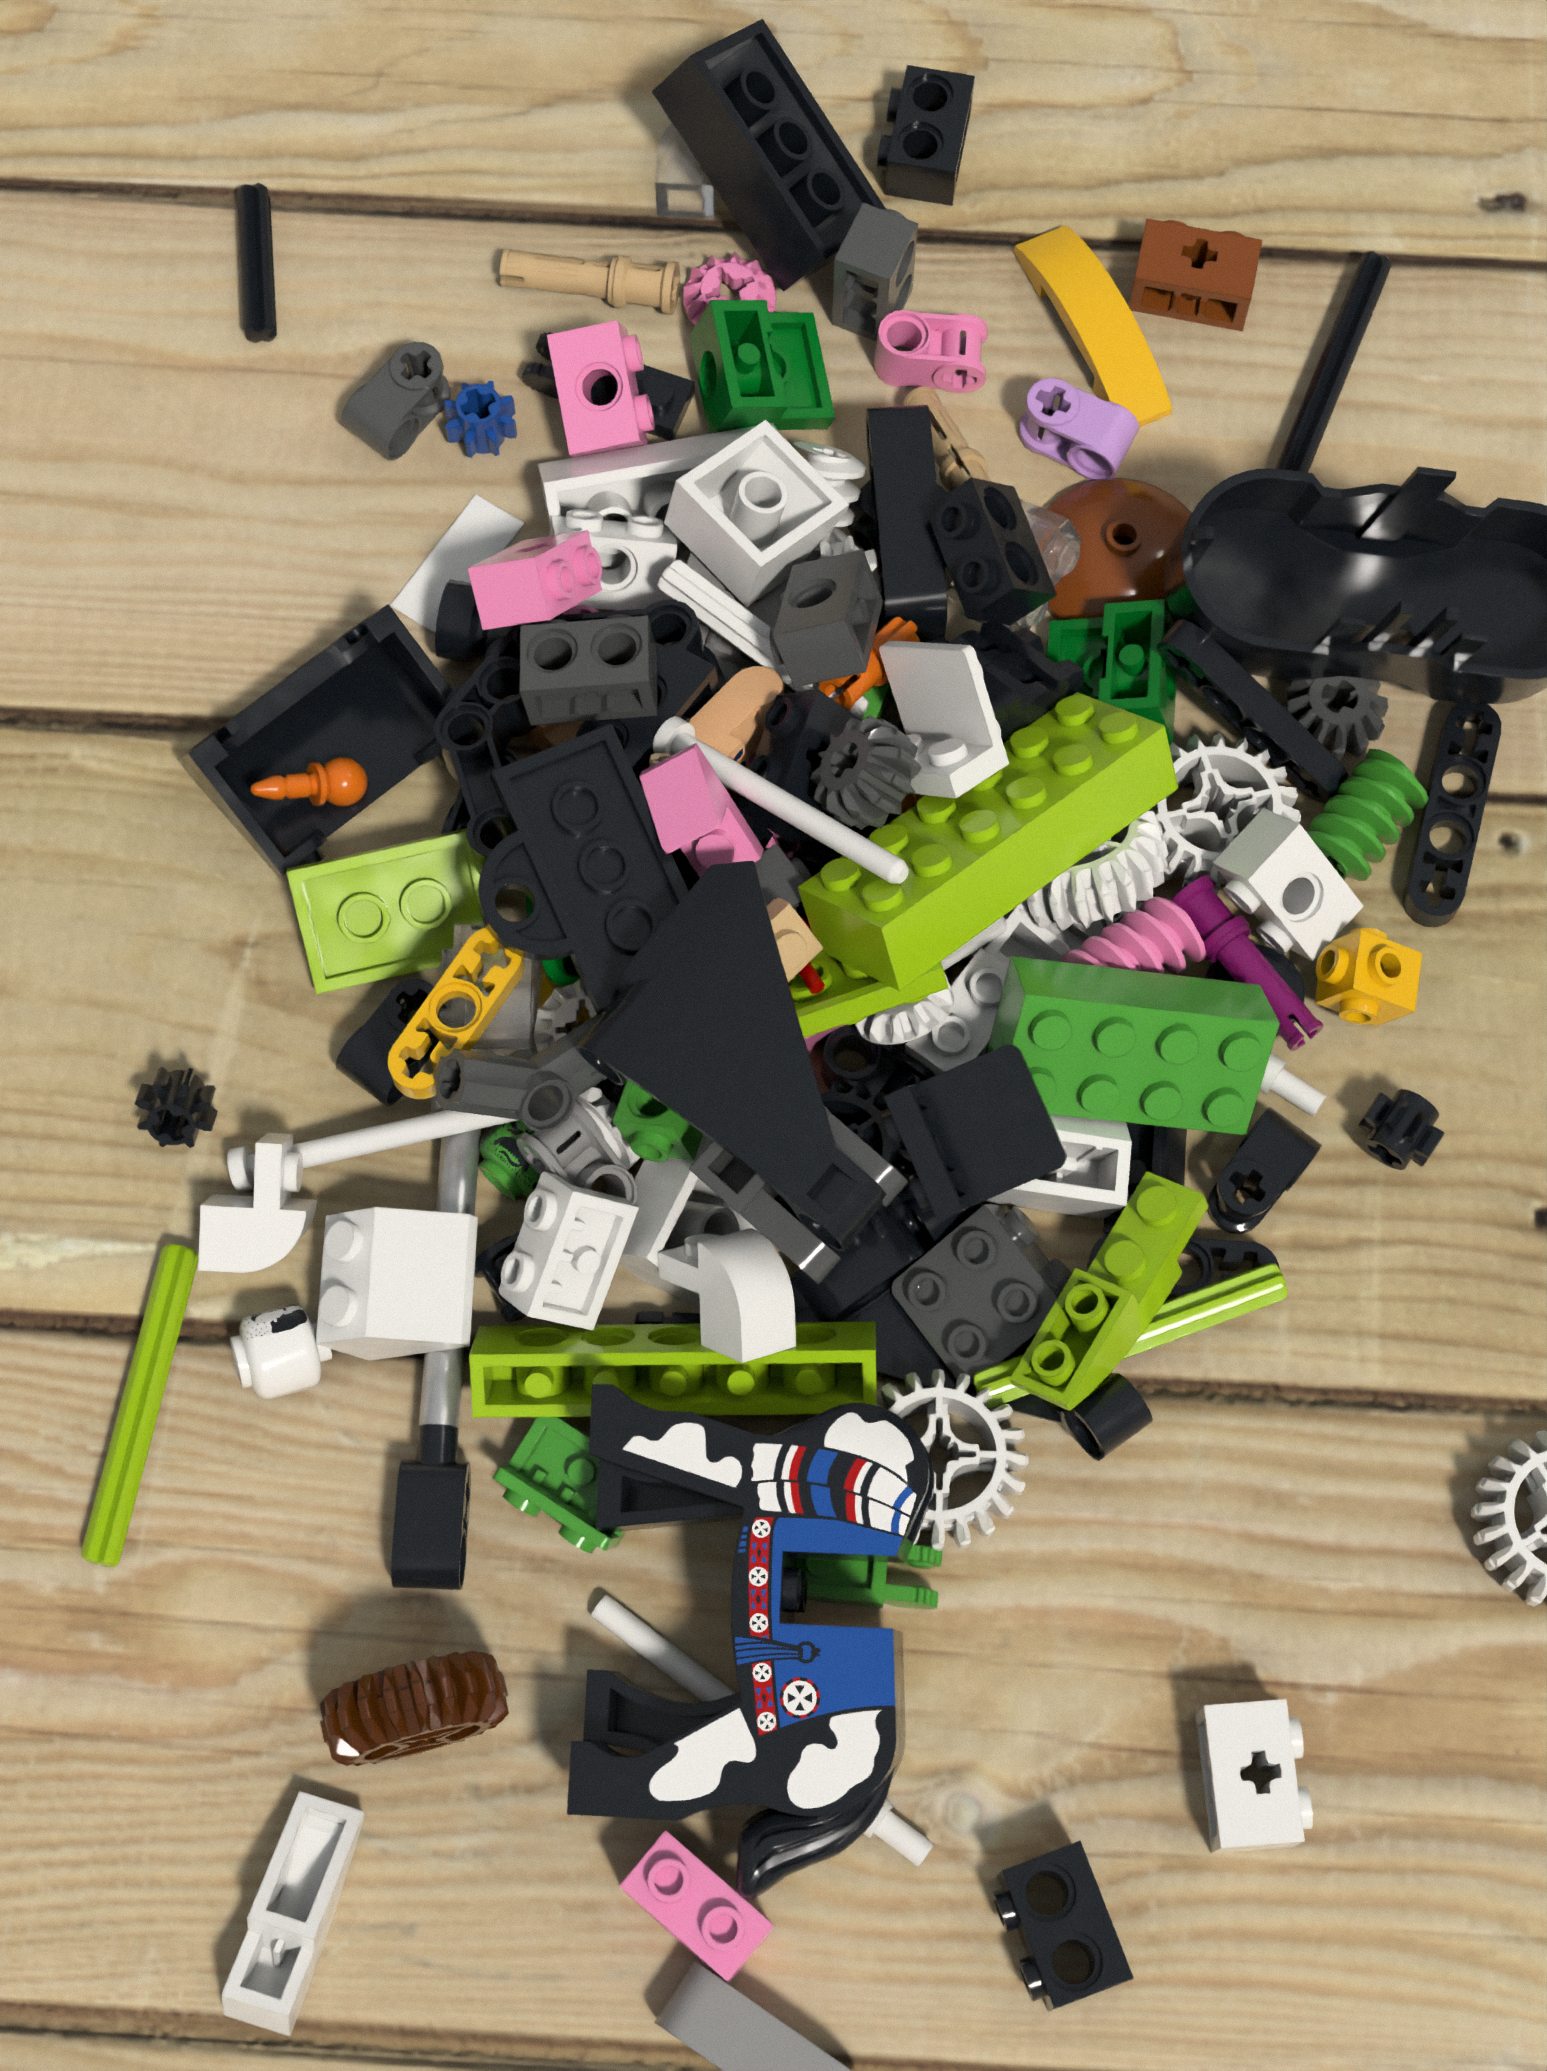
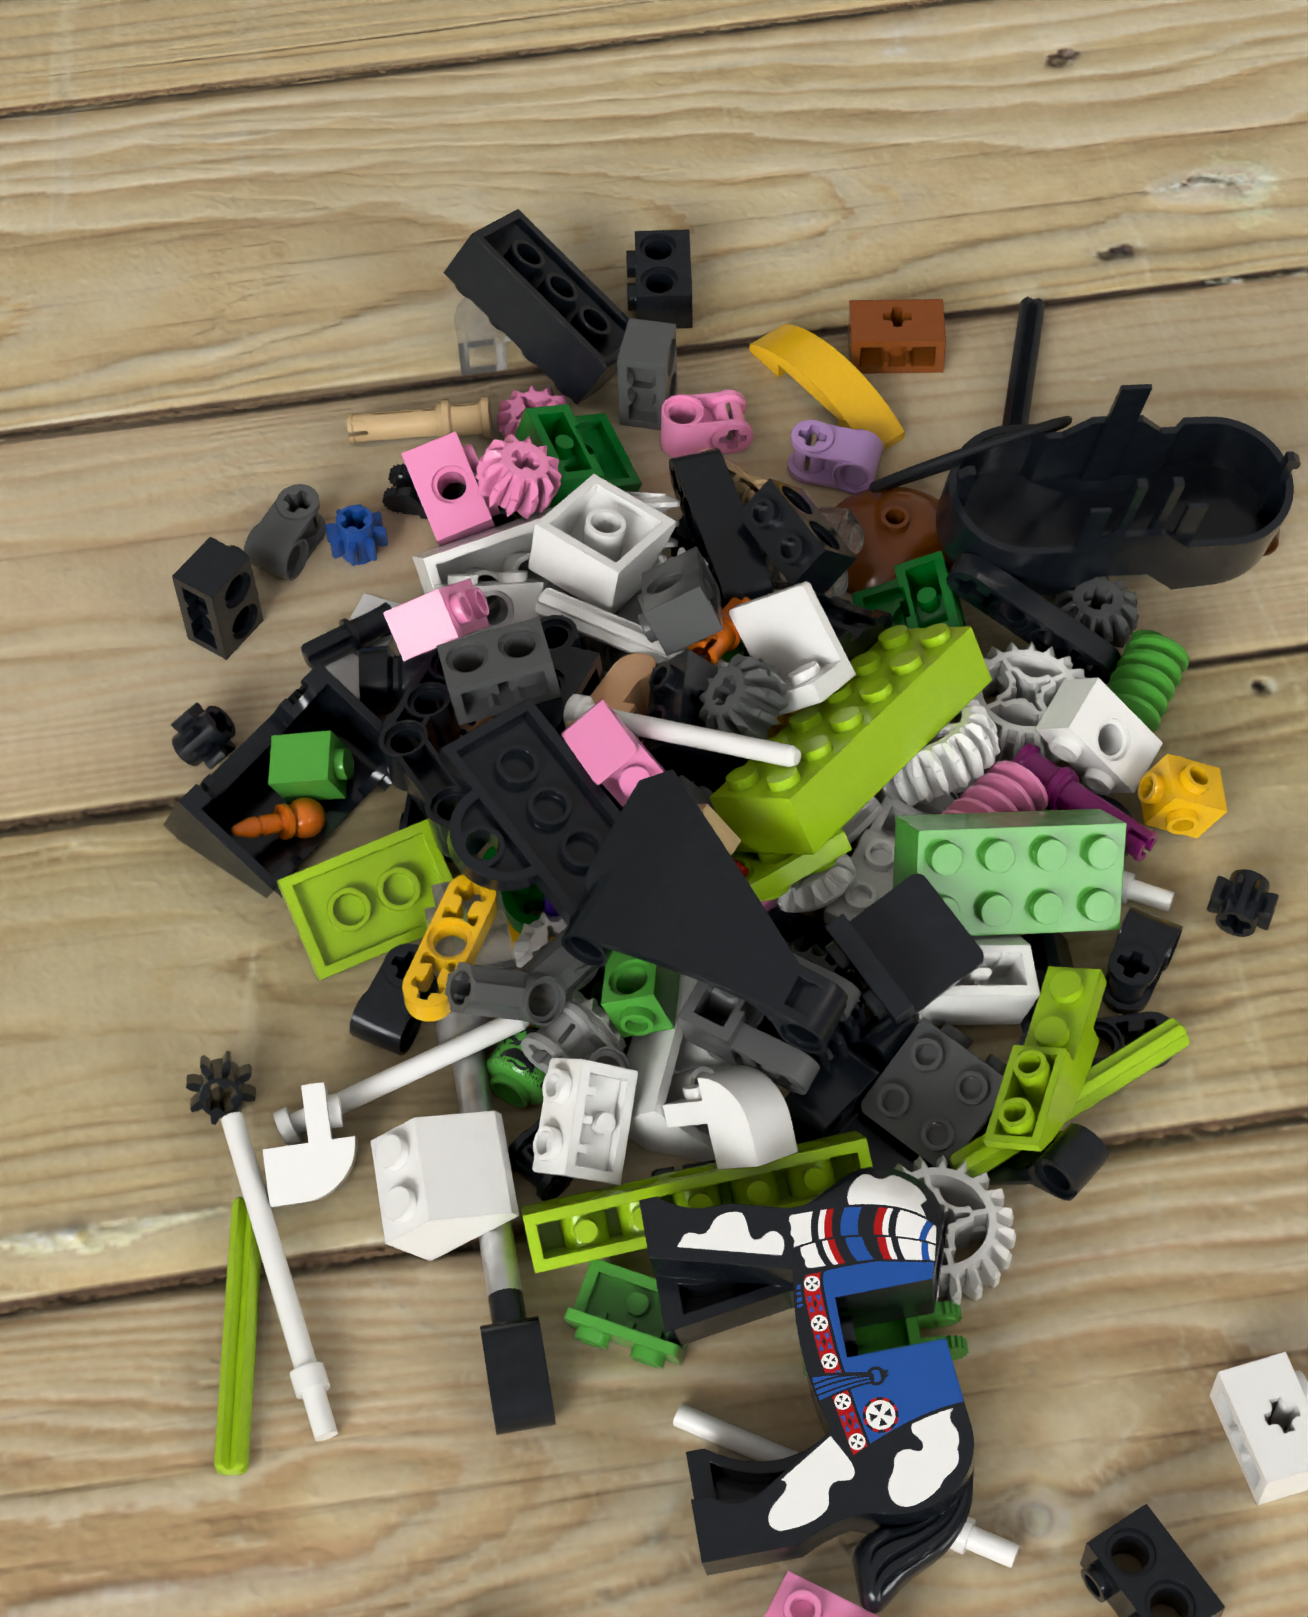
camera: 10 degrees left, 15 degrees down
(204, 1474) = (308, 1376): none -> white bar
(246, 653) = (203, 735): none -> black gear
(256, 263) = (148, 461): black axle -> none
(278, 1352) = (353, 1262): white head -> none
(297, 476) = (218, 597): none -> black brick
(357, 724) = (309, 766): none -> bright green brick
(413, 1708) = (541, 1519): reddish brown gear -> none
(442, 555) = (347, 637): none -> black axle
(680, 395) = (518, 476): none -> bright pink gear
(1353, 462) = (944, 462): none -> black piece
(1451, 812) = (1214, 671): black beam -> none

